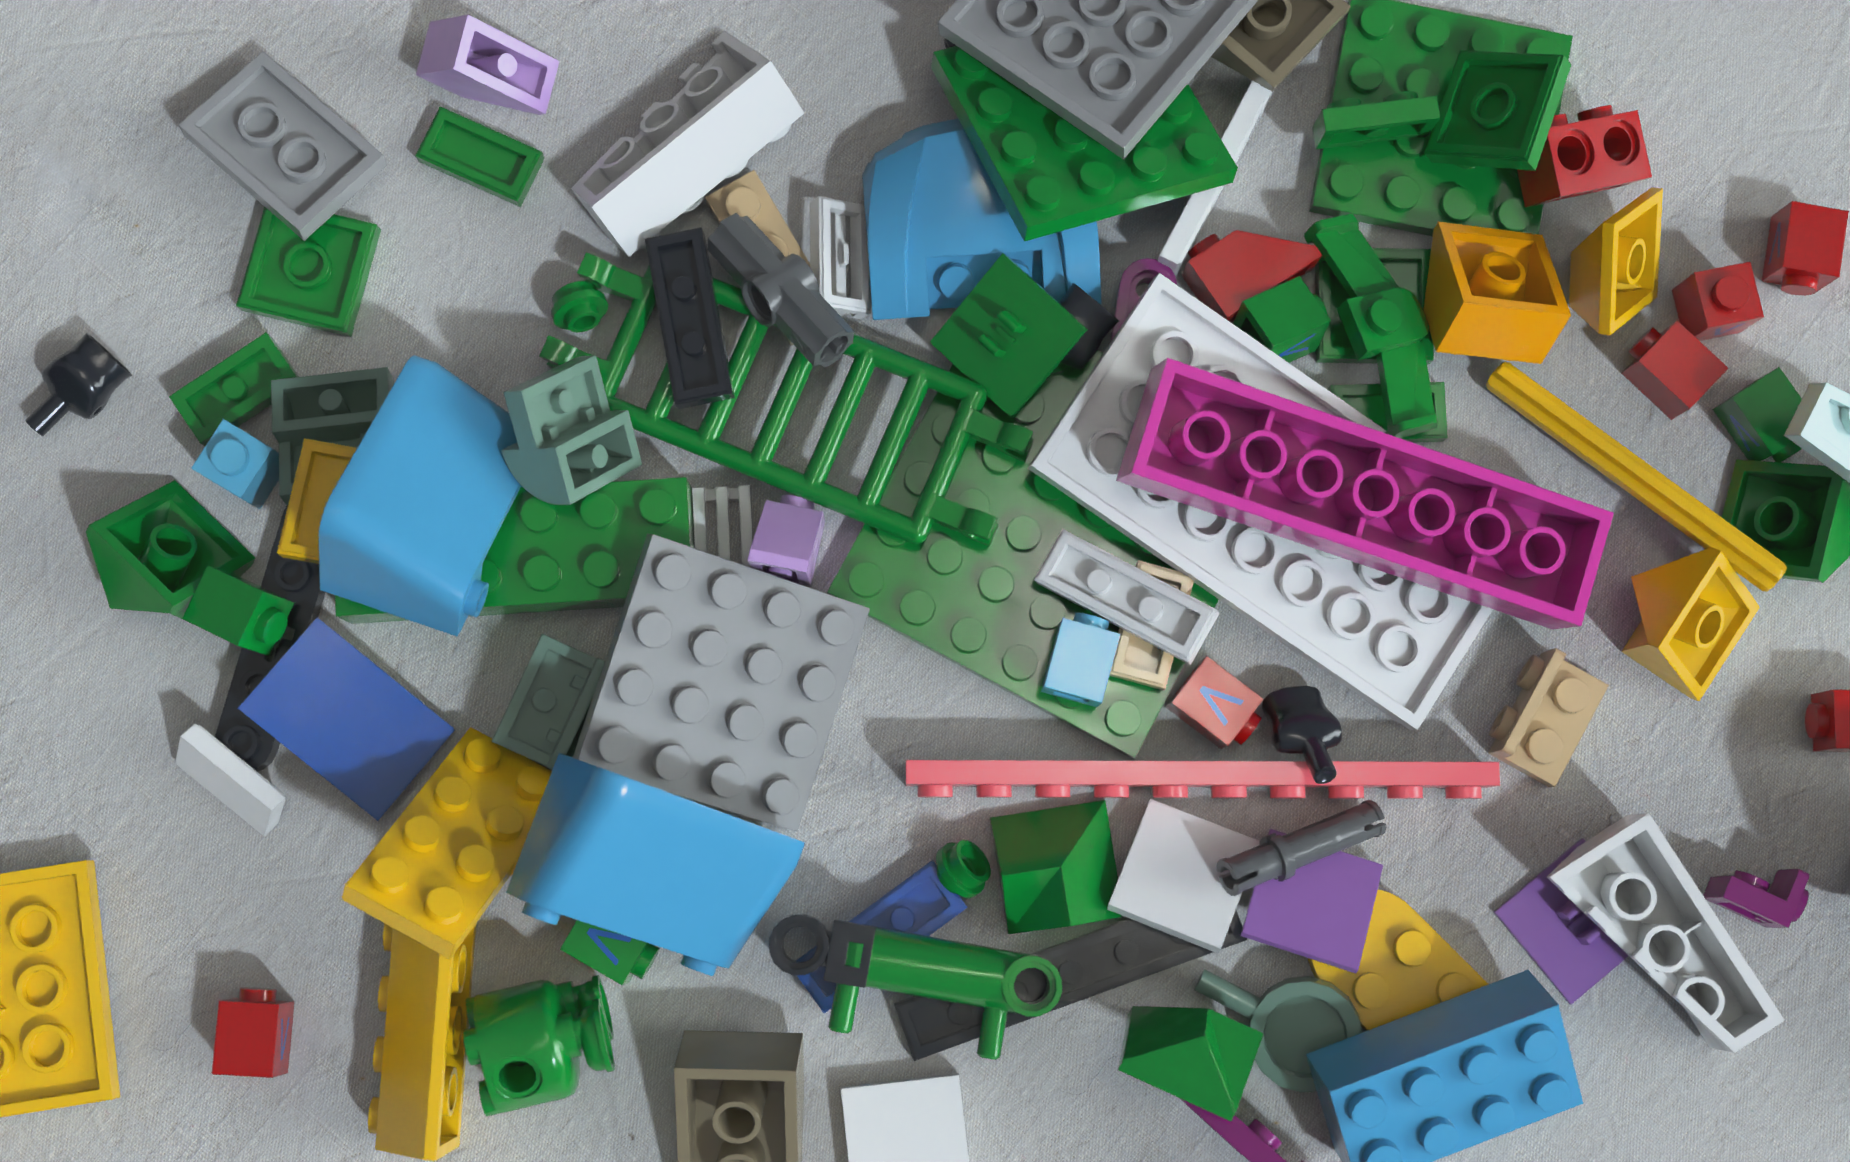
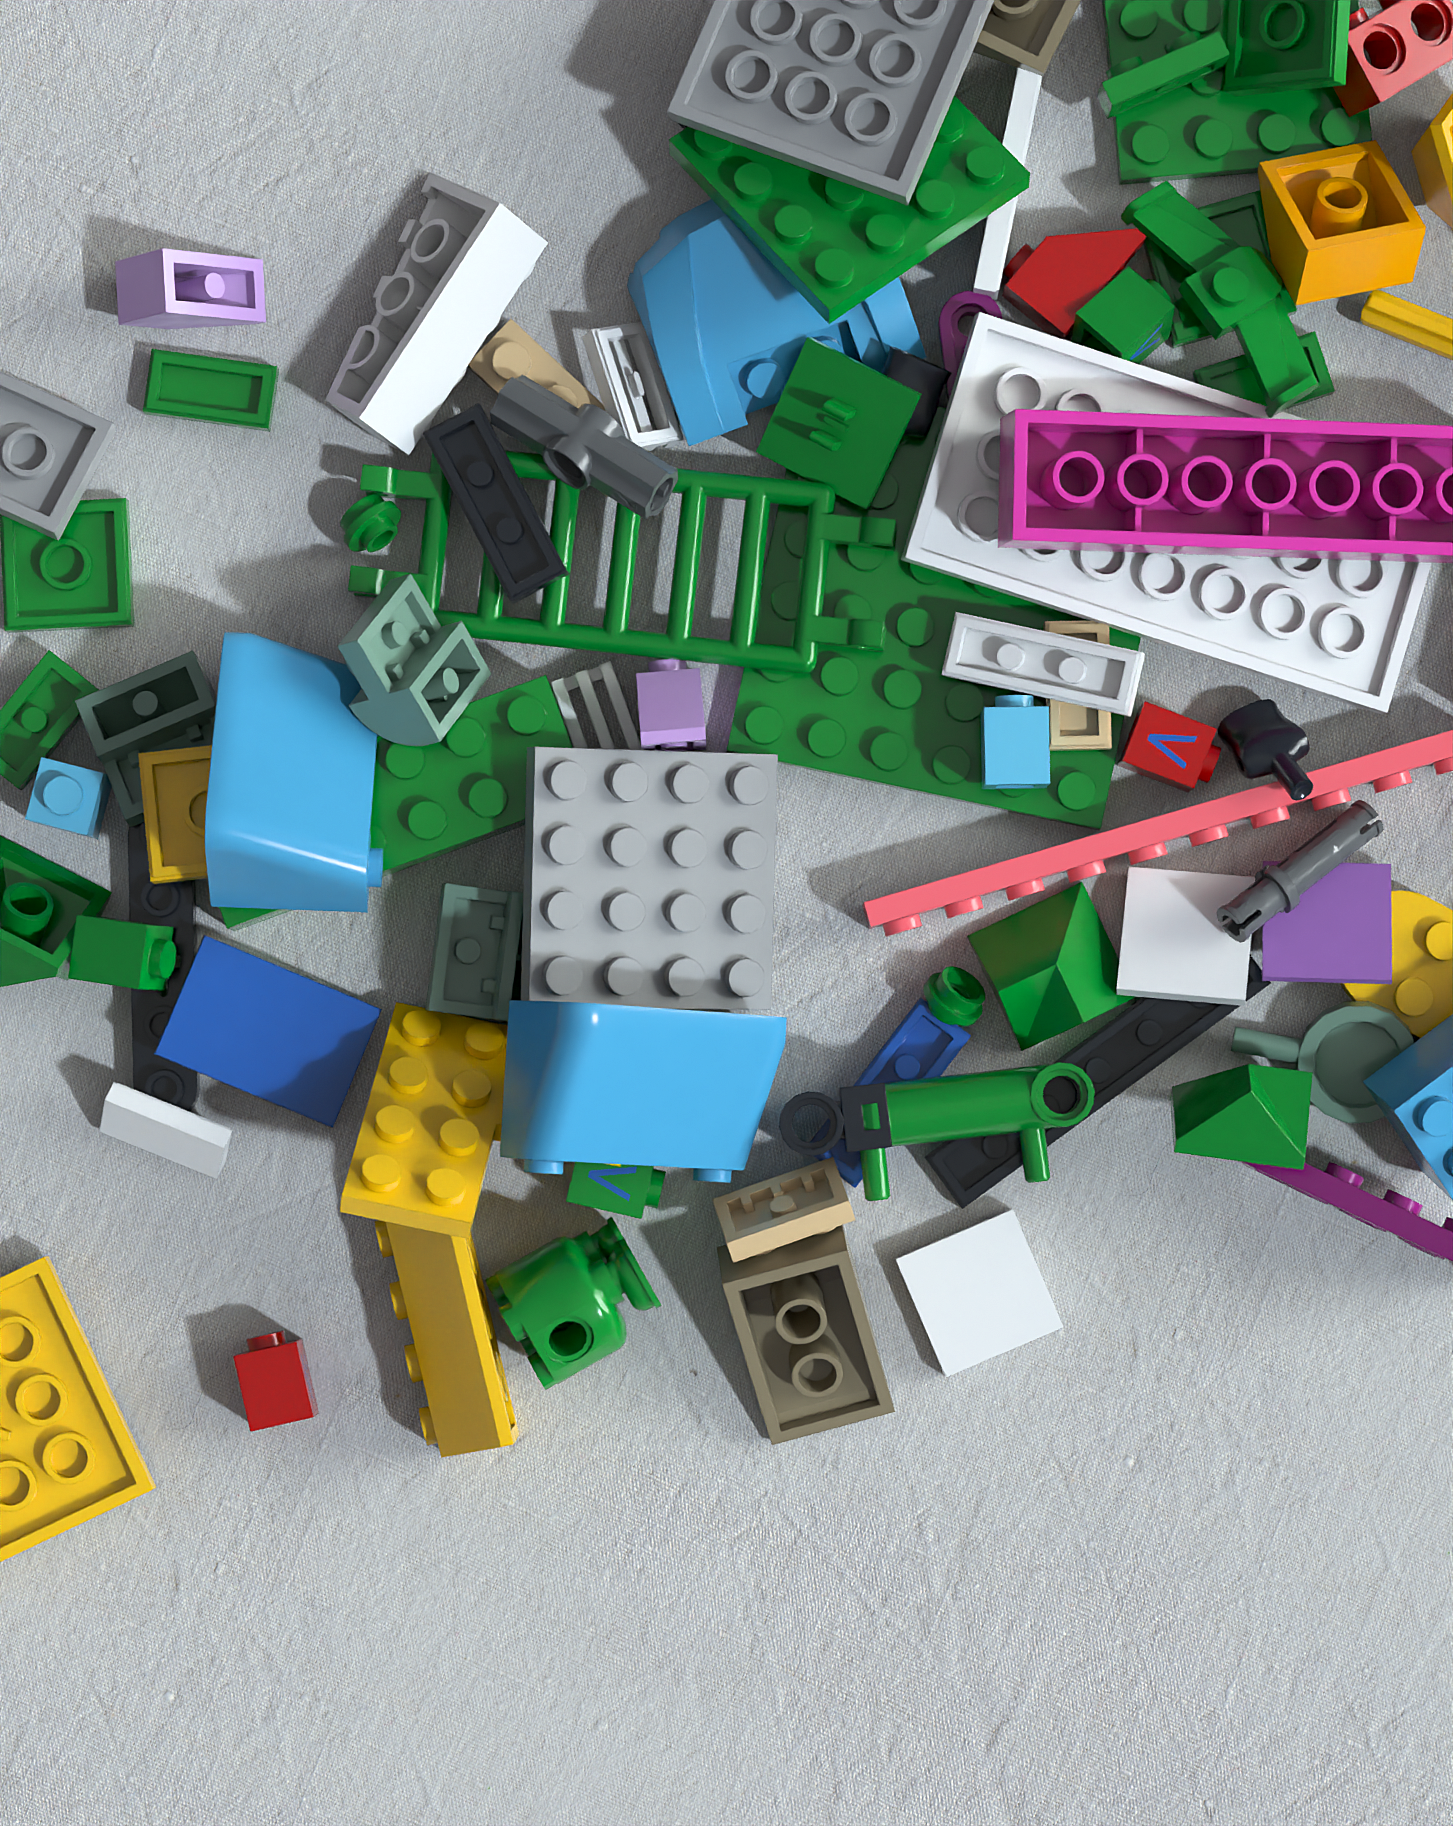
camera: 10 degrees left, 5 degrees up
(751, 1015) = (783, 1210): none -> tan bracket

